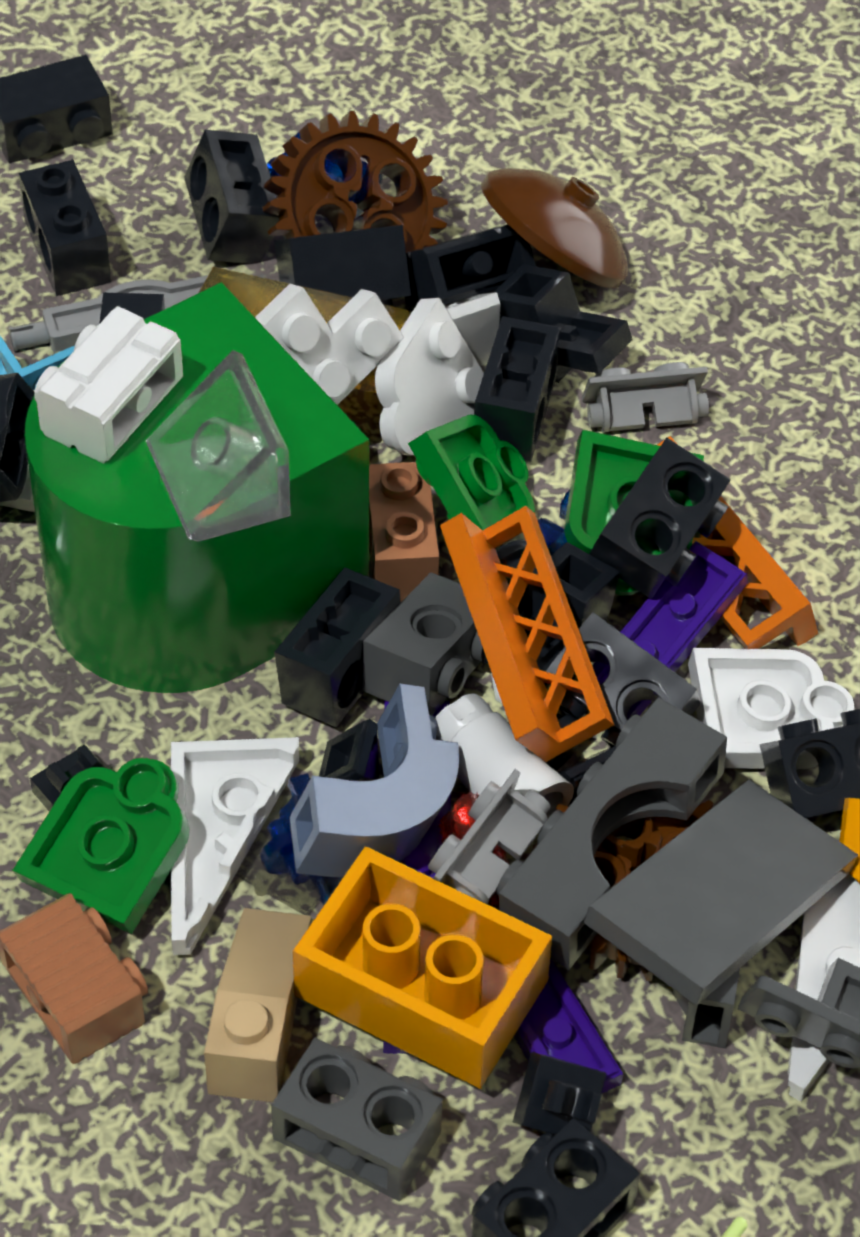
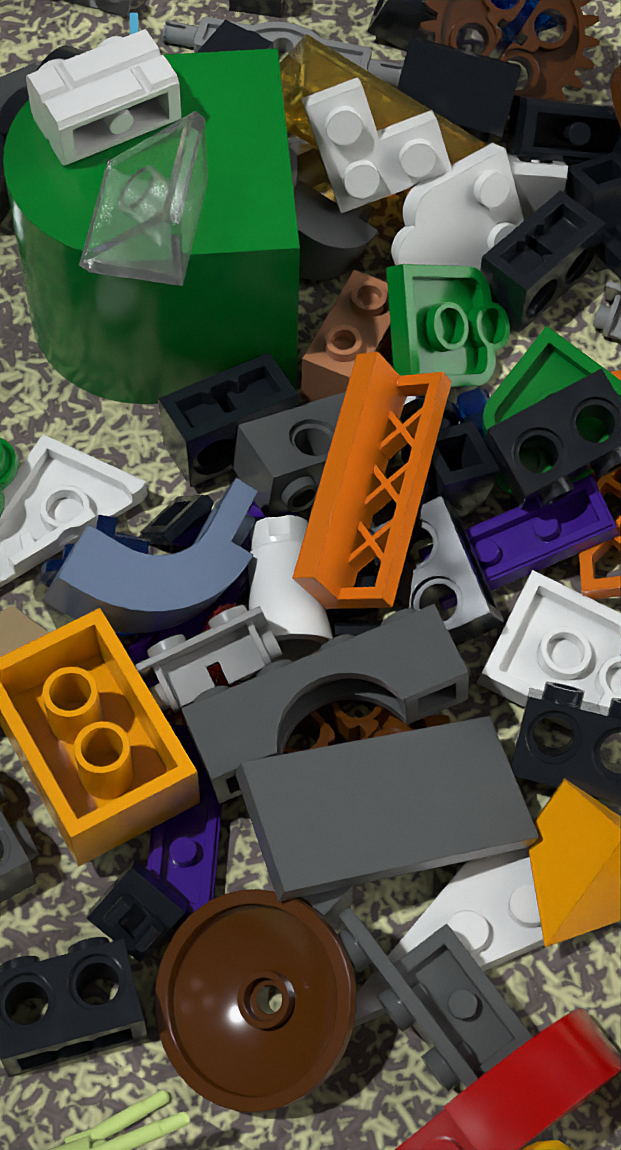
camera: 30 degrees right, 10 degrees up
(667, 1096) = (217, 1006): none -> reddish brown dish

